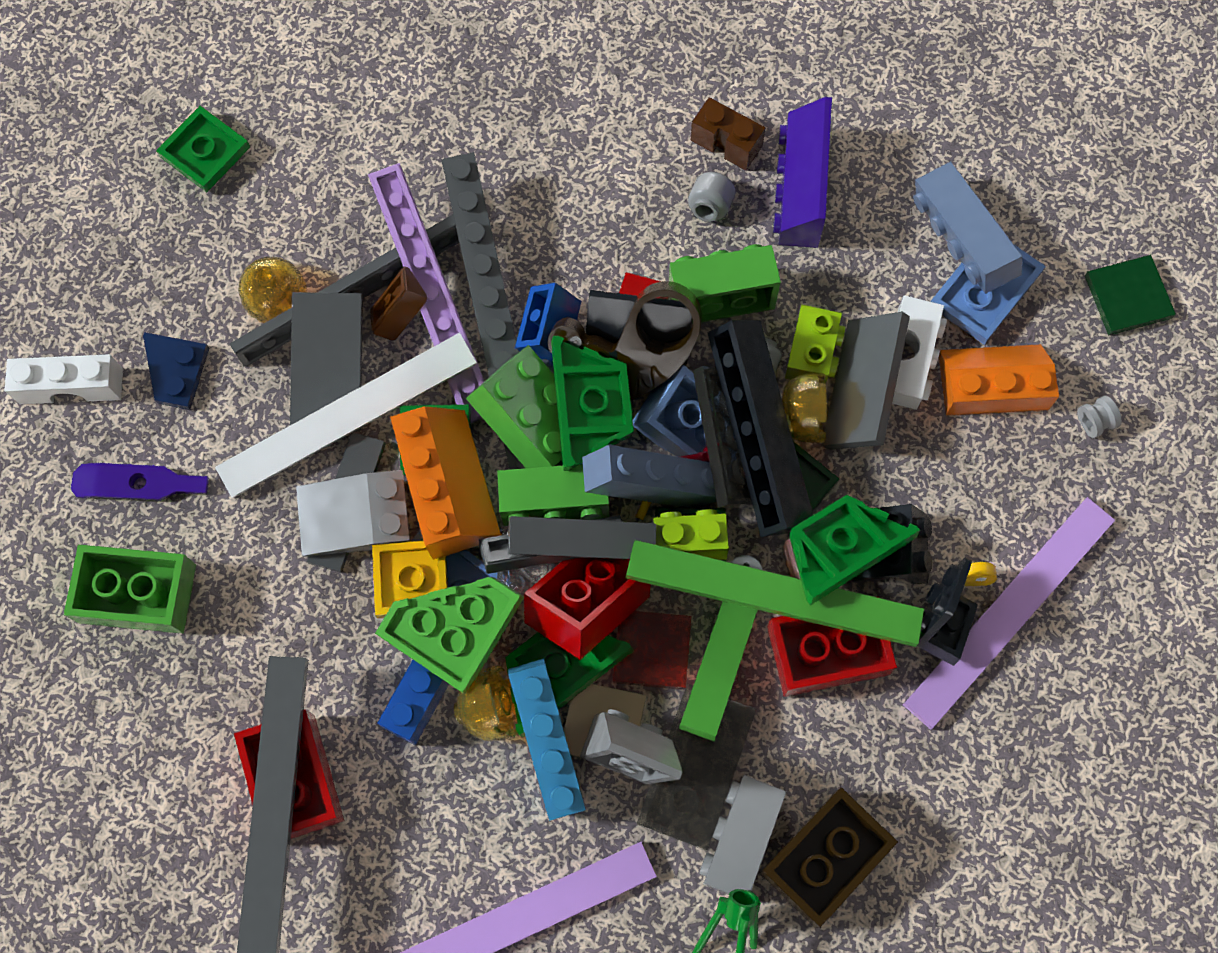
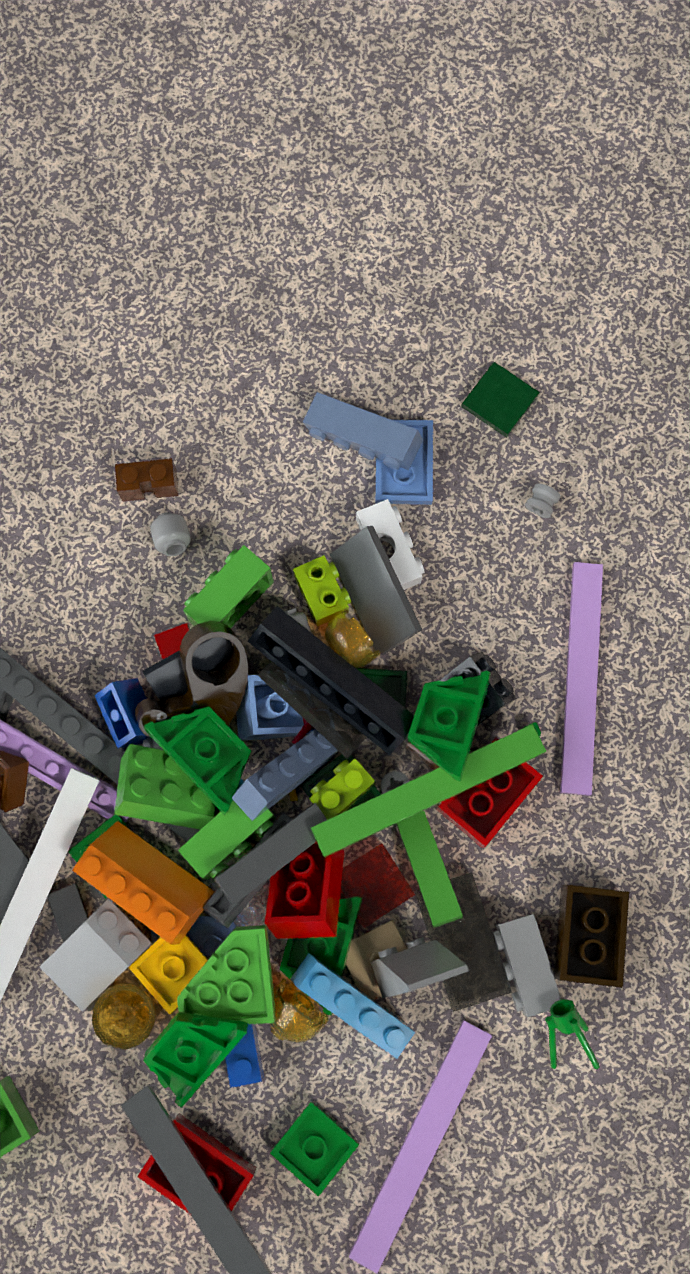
camera: 40 degrees left, 5 degrees up
(334, 584) = (123, 1016): none -> clear yellow cylinder
(368, 661) = (191, 1051): none -> green wing
(410, 845) = (314, 1148): none -> green plate
(804, 175) = (224, 472): dark purple slope -> none
(948, 615) = (548, 713): black bracket -> none
(981, 574) = (544, 668): yellow tile -> none
(997, 379) = (458, 522): orange slope -> none

